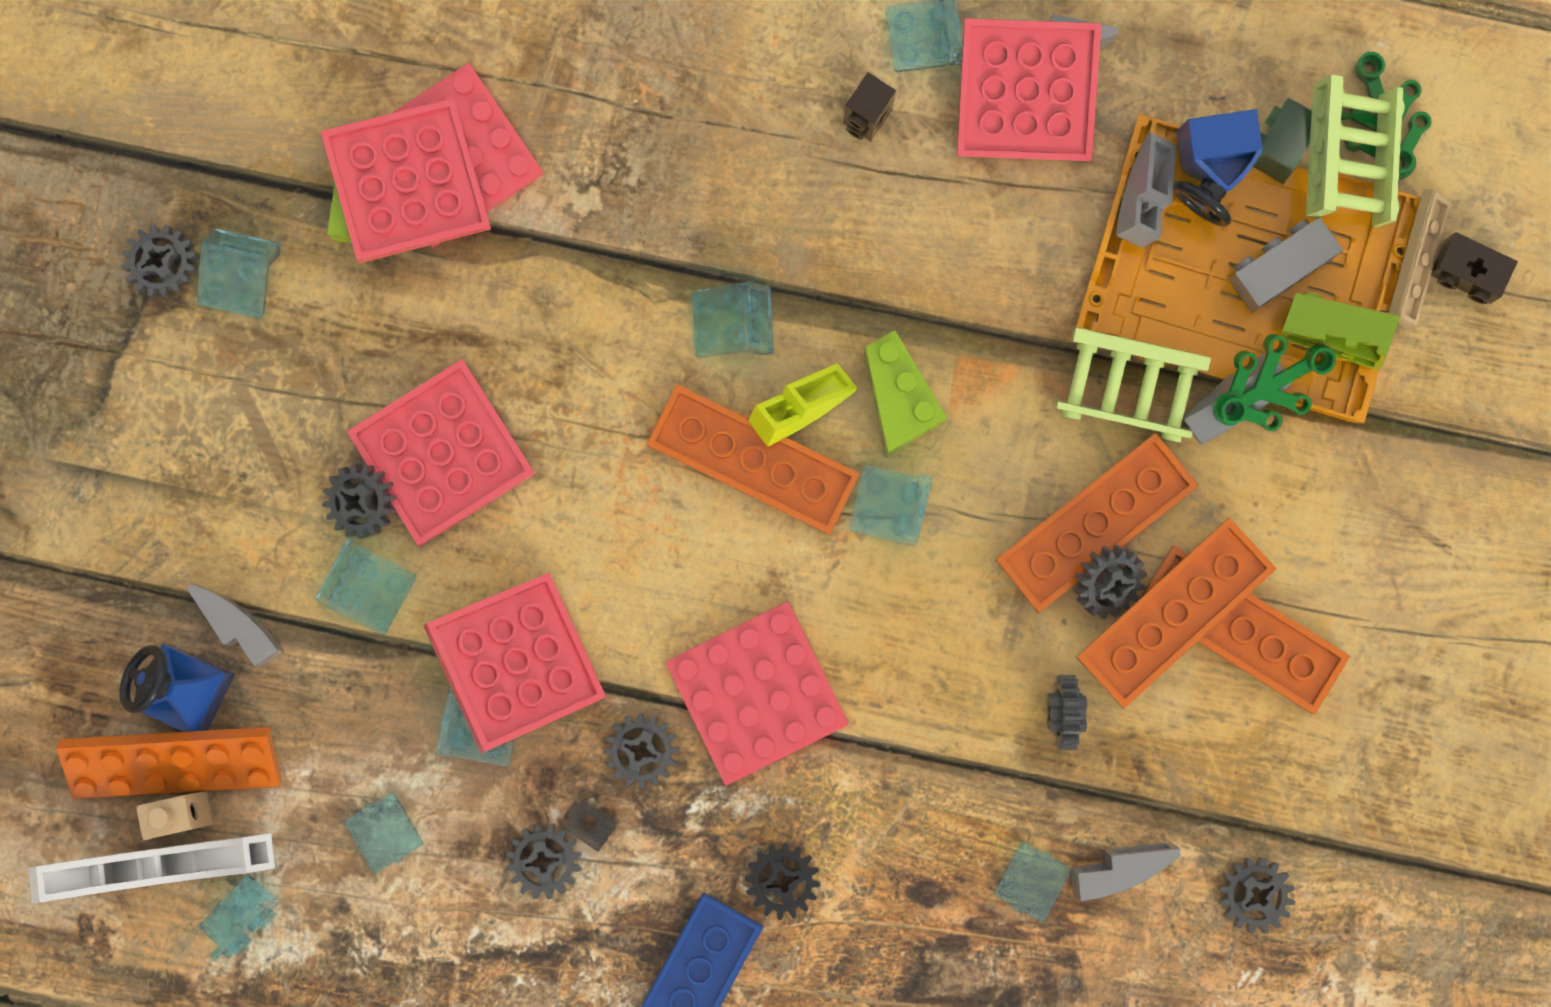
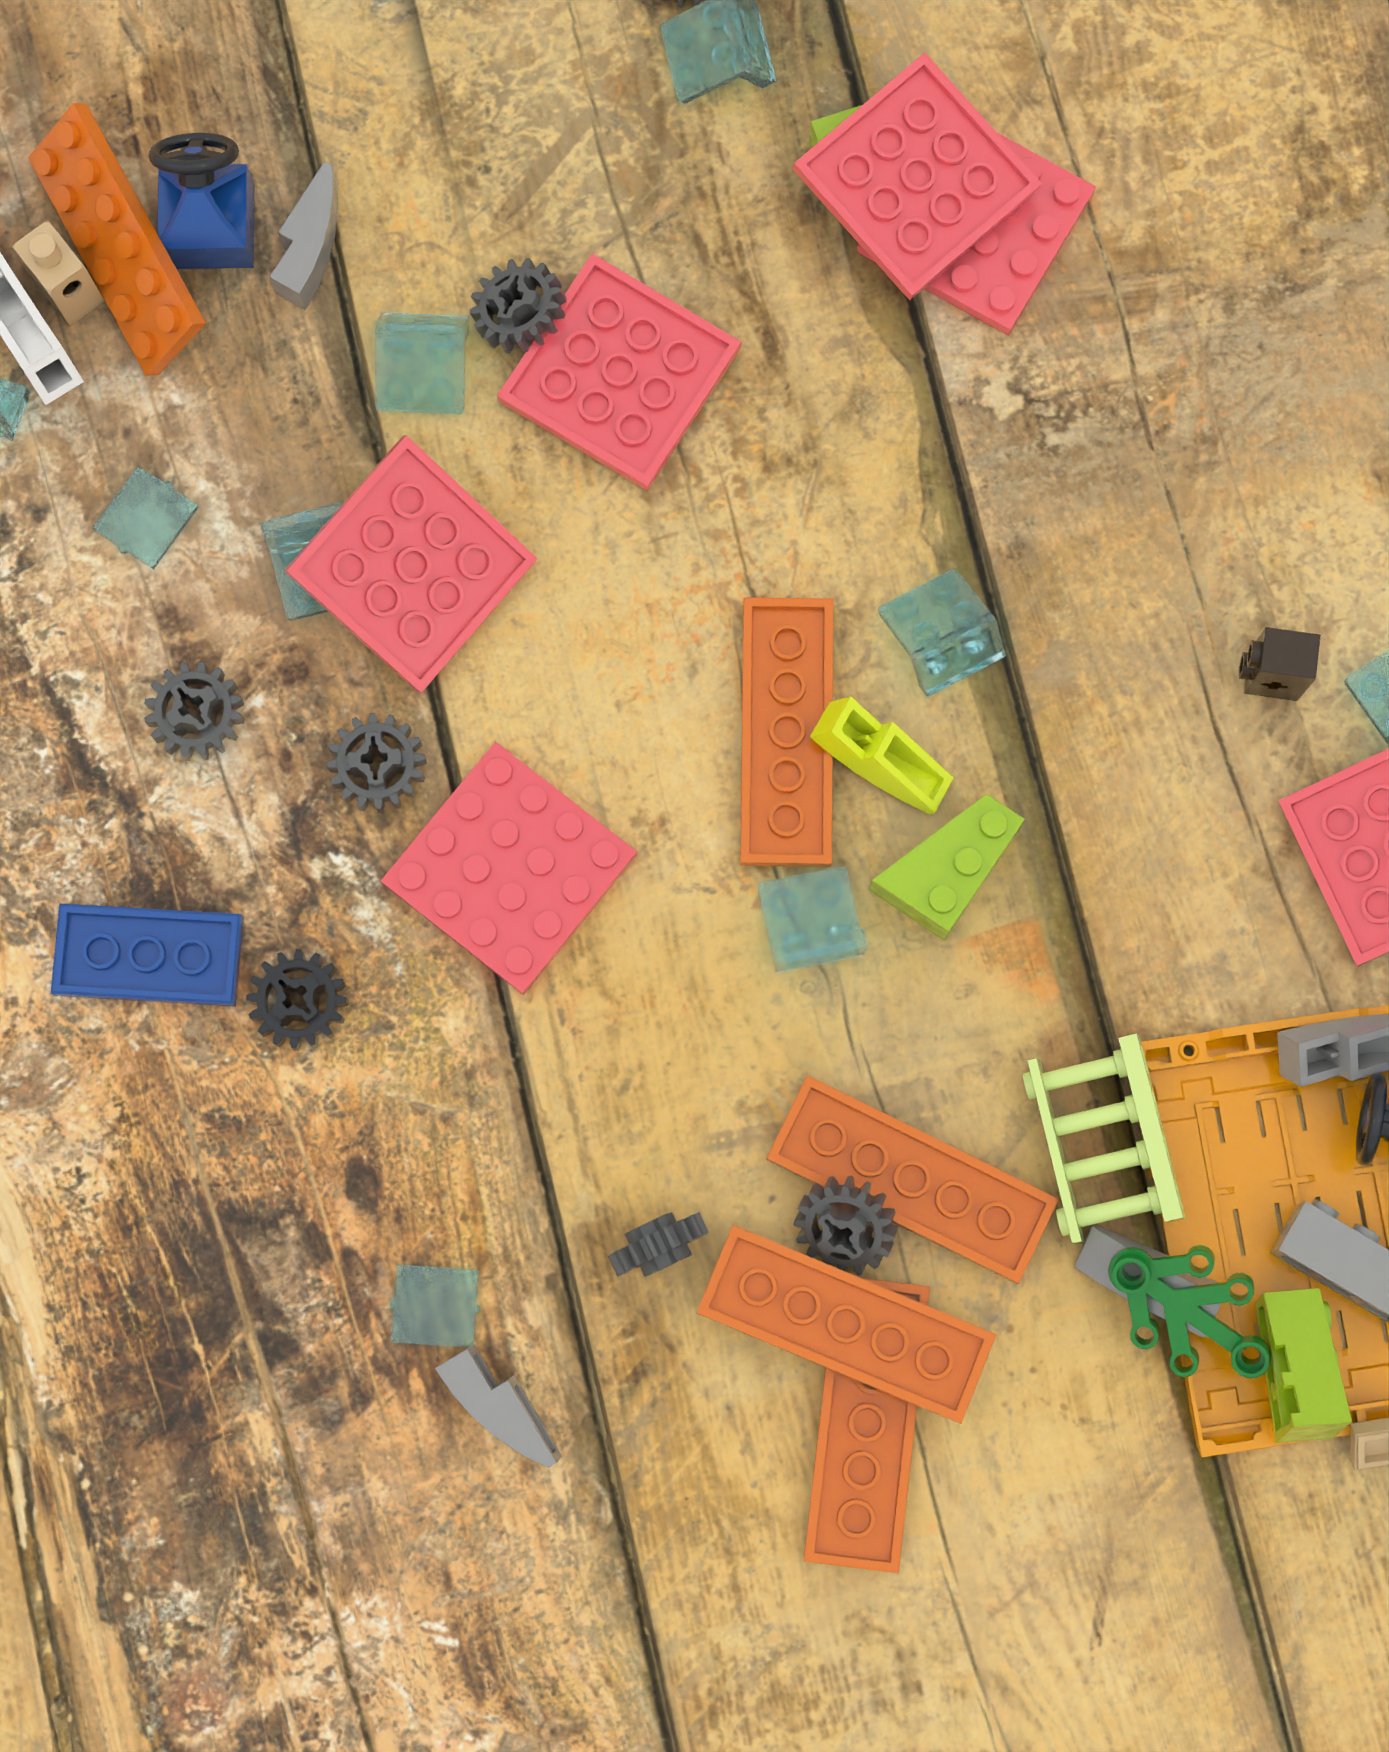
camera: 65 degrees right, 5 degrees down
(593, 837) = (254, 728): clear smoke brick -> none
(1265, 906) = (571, 1606): dark grey gear -> none

